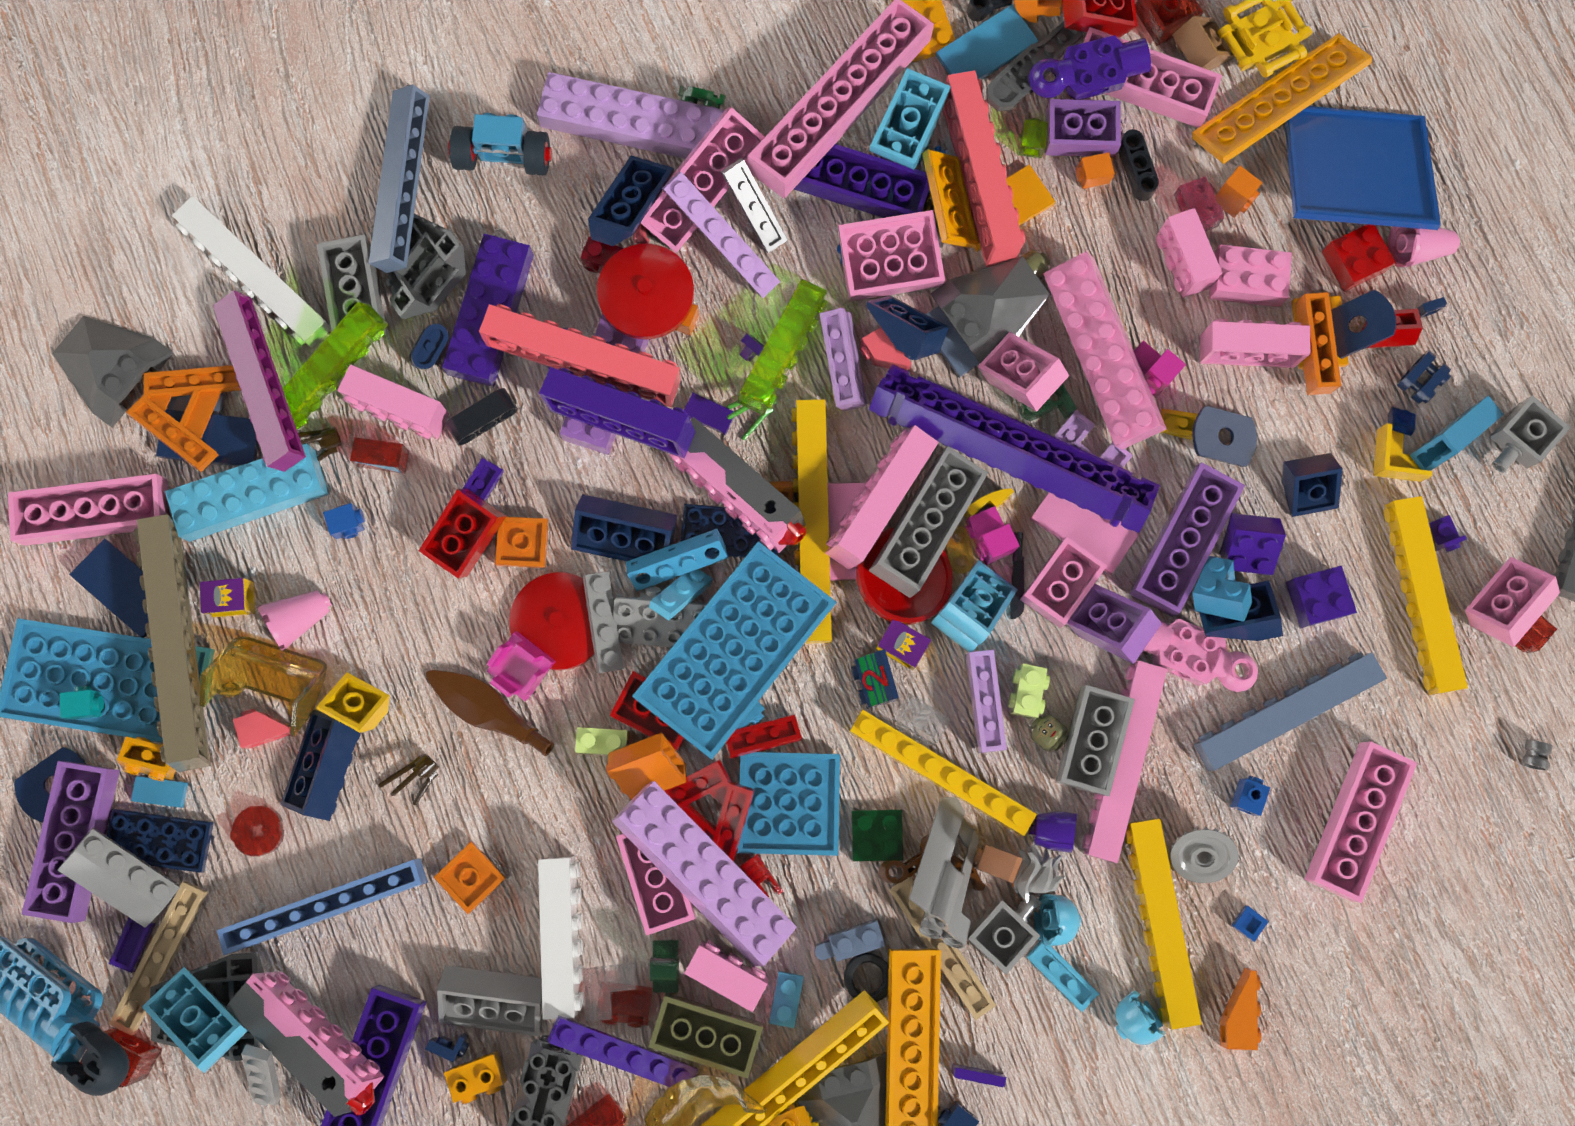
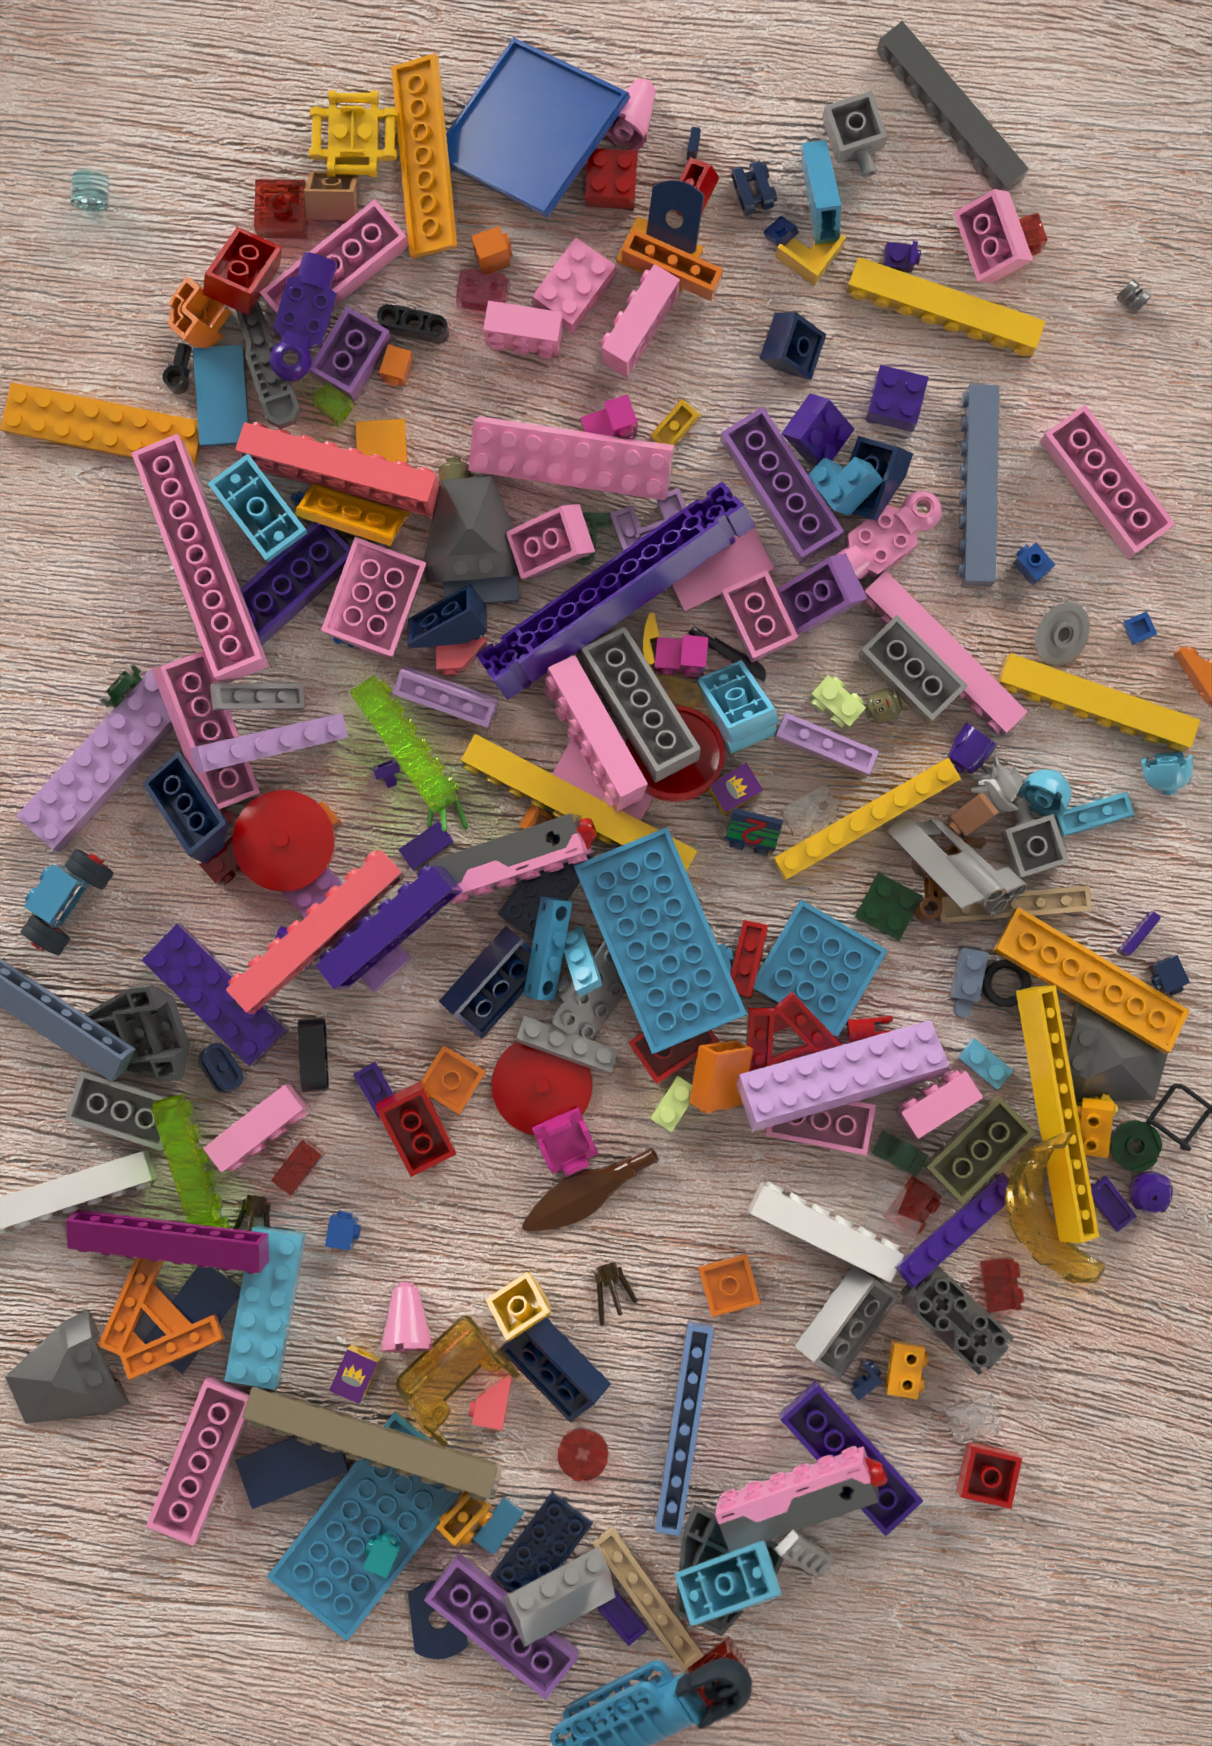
camera: 55 degrees left, 5 degrees up
(1206, 439) = (702, 414): dark blue piece -> none

